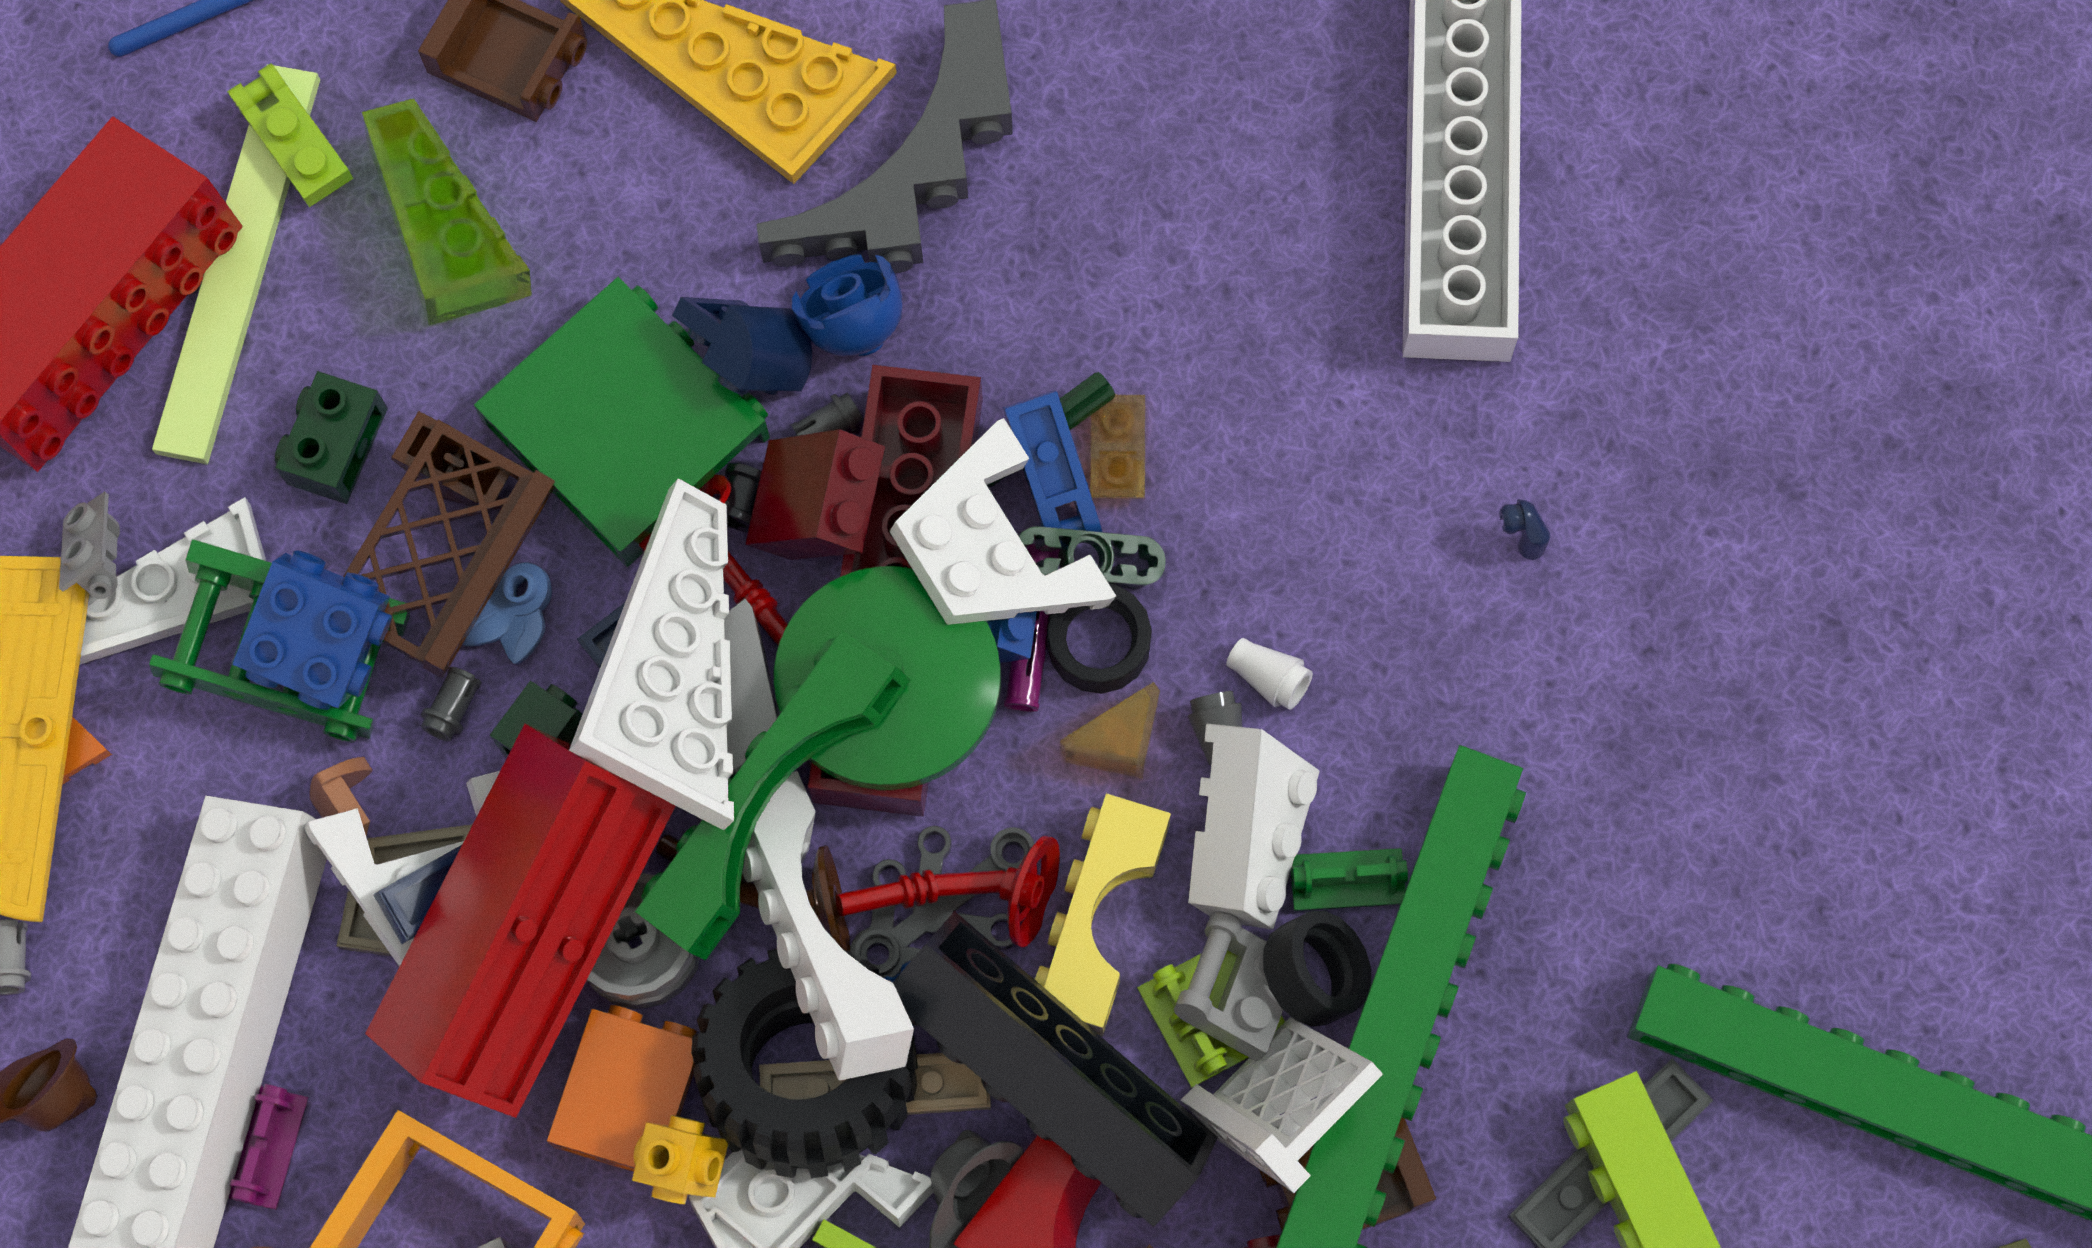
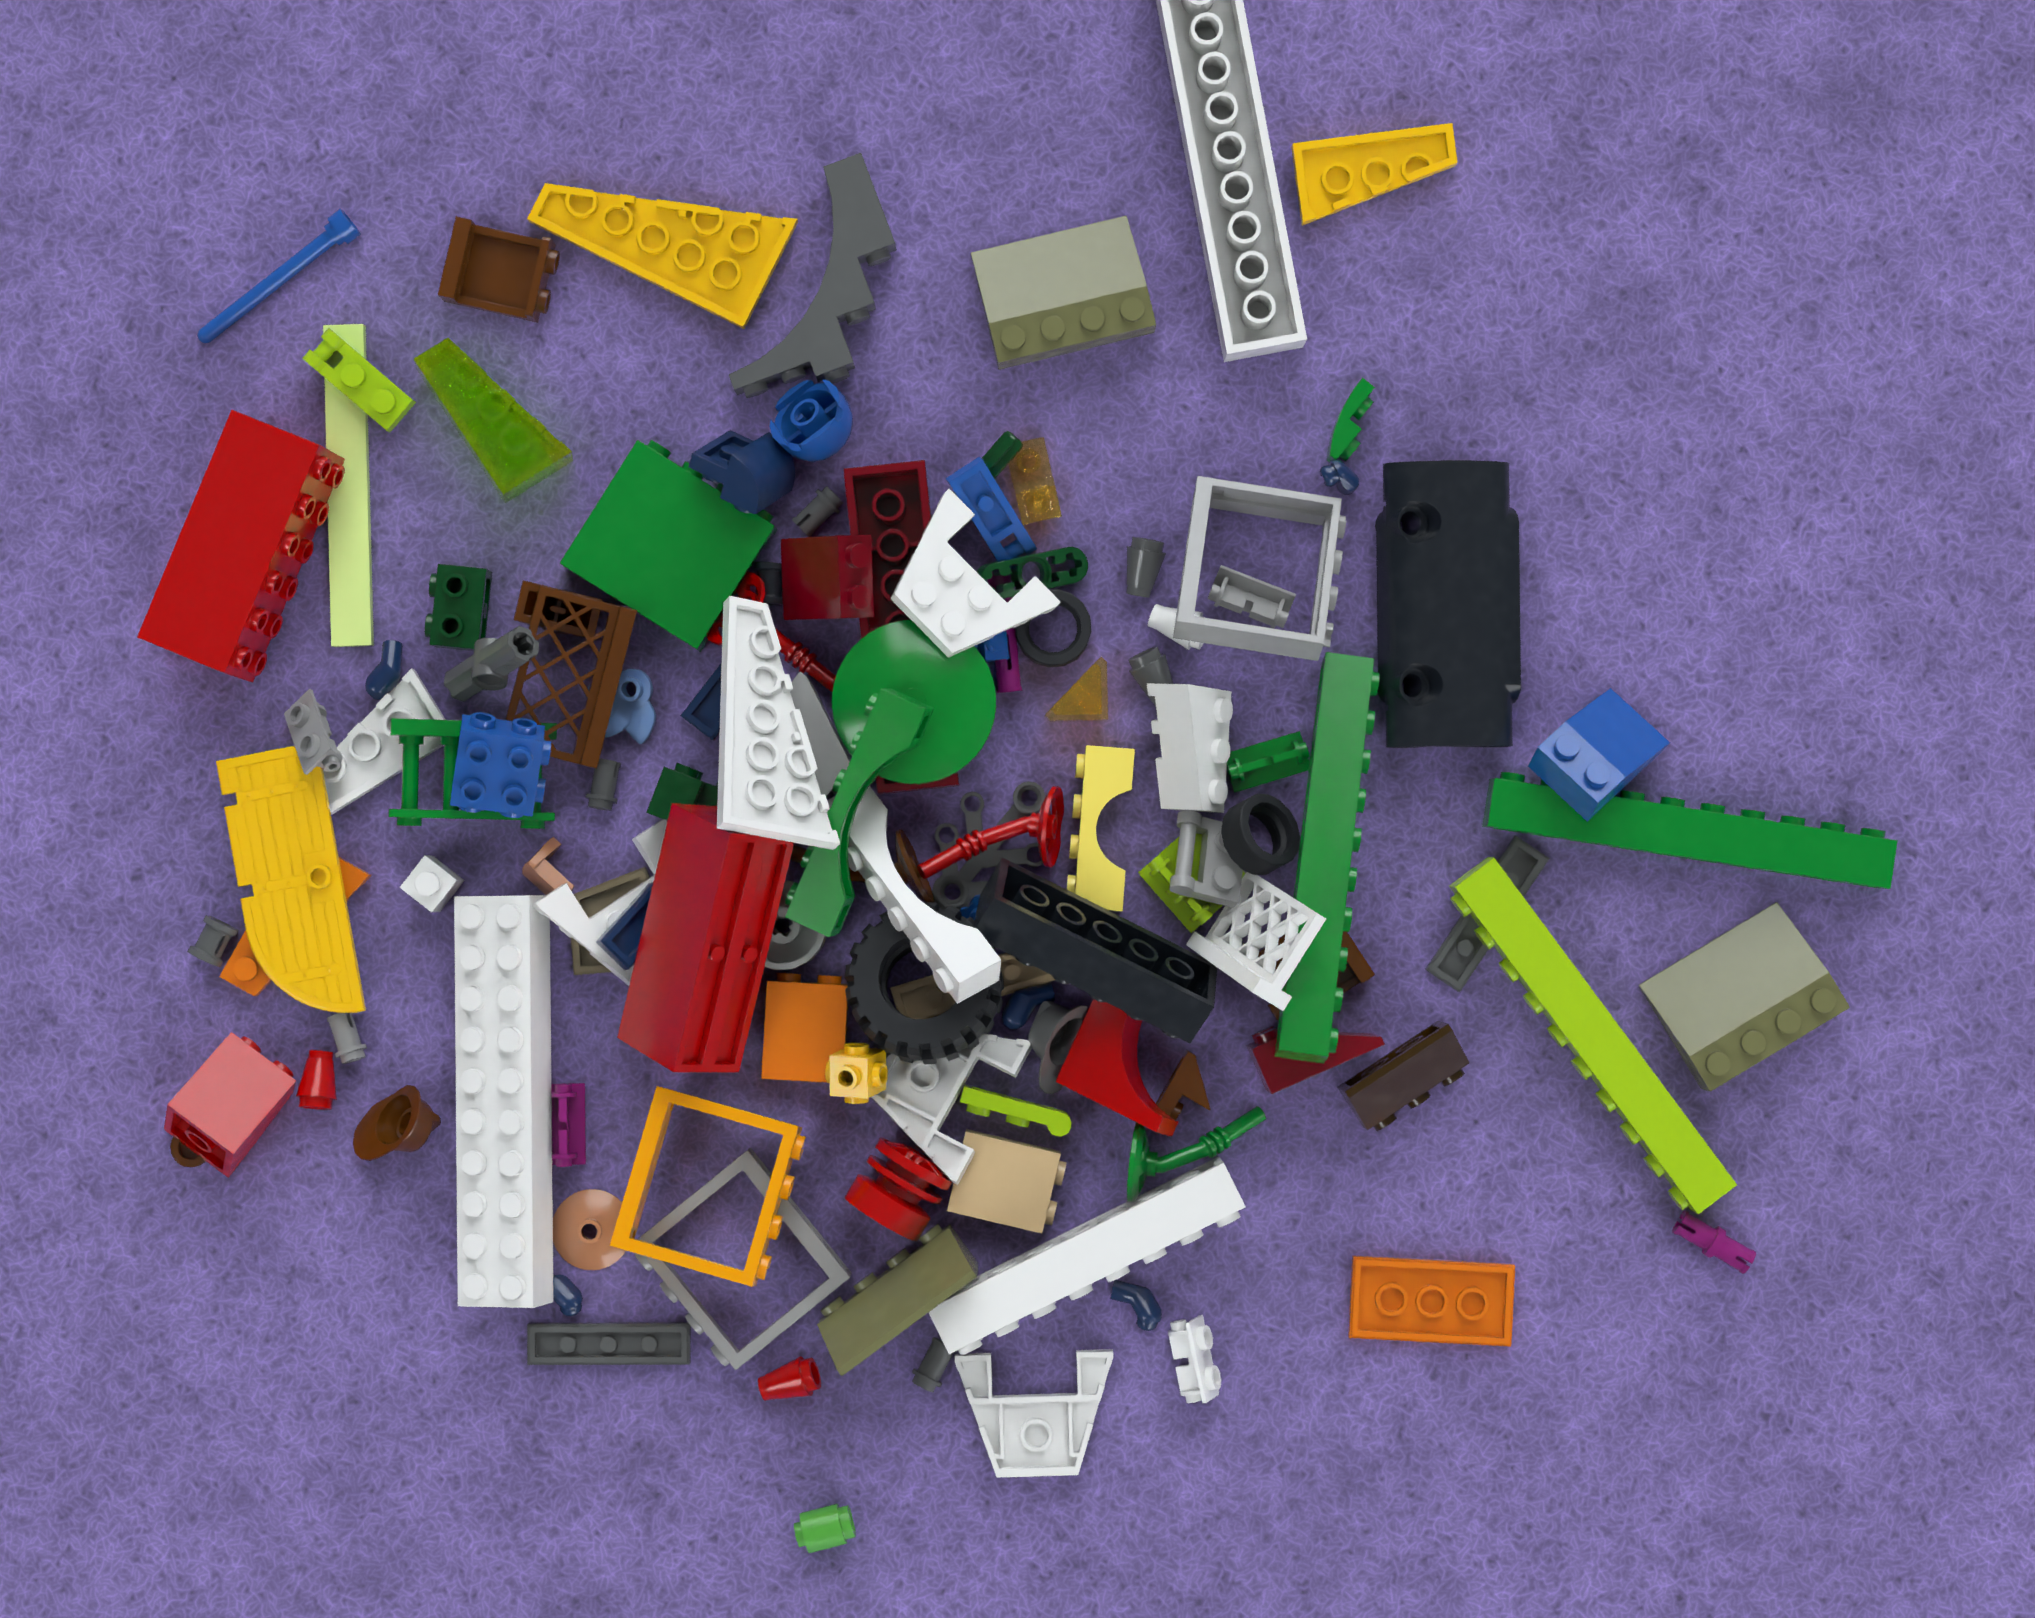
camera: 15 degrees left, 15 degrees up
(183, 777) = (432, 883): none -> white brick
(213, 496) = (387, 672): none -> dark blue arm
(346, 504) = (491, 663): none -> dark grey piece
(935, 1128) = (1023, 1003): none -> dark blue arm
(1213, 229) = (1063, 292): none -> slope
(1238, 584) = (1143, 565): none -> dark grey cone
(1374, 655) = (1245, 593): none -> light grey hinge
(1417, 540) = (1267, 503): none -> light grey window
(1546, 471) = (1343, 435): none -> green slope
(1633, 159) = (1360, 167): none -> yellow wing
(1638, 725) = (1448, 604): none -> black panel
(1804, 965) = (1597, 753): none -> blue slope

